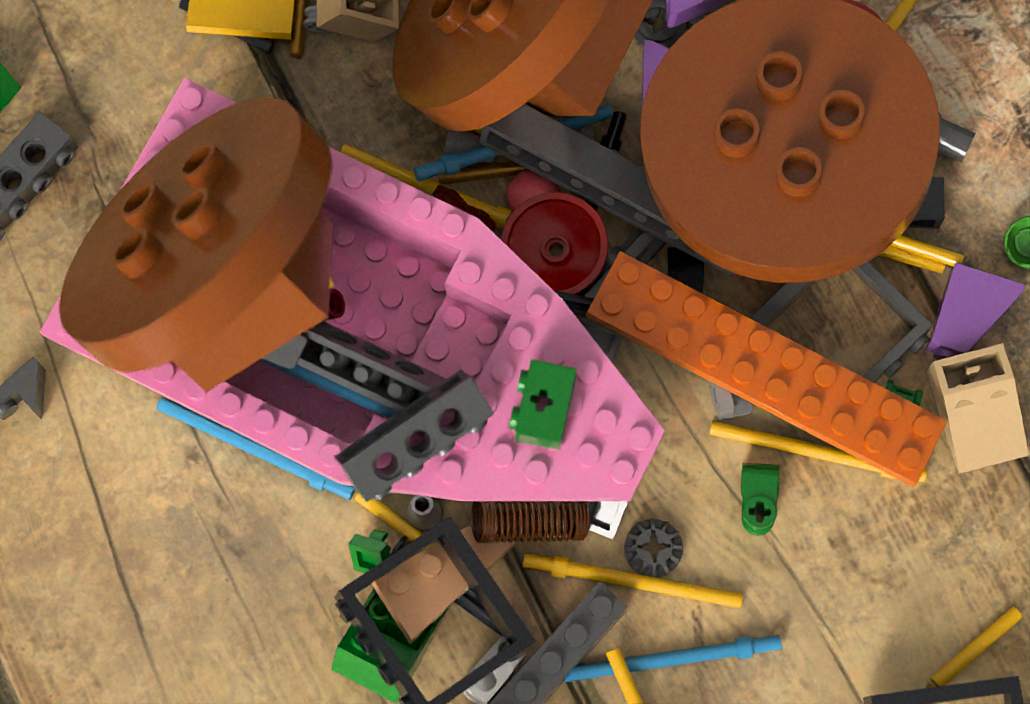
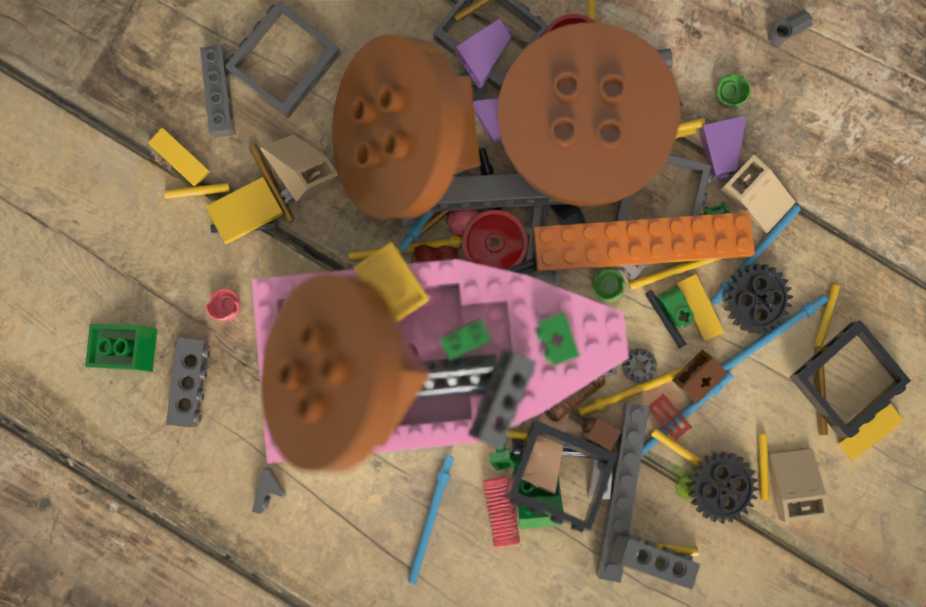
camera: 40 degrees left, 10 degrees up
(130, 109) = (224, 305): none -> coral hair
(272, 530) = (443, 477): none -> dark azure bar
(331, 579) = (504, 540): none -> coral piece
(367, 193) = (394, 279): none -> yellow tile
(419, 331) = (465, 338): none -> green brick
(533, 600) = (600, 432): none -> reddish brown brick
(653, 675) = (681, 432): none -> clear red tile
(679, 405) = (608, 285): none -> bright green hair
(733, 505) = (665, 318): none -> black bar
(742, 599) = (699, 376): none -> reddish brown brick
(793, 520) = (704, 315): none -> yellow tile
(854, 512) = (763, 245): none -> dark azure bar
(917, 545) = (769, 283): none -> black gear
(950, 620) = (806, 310): none -> dark azure bar

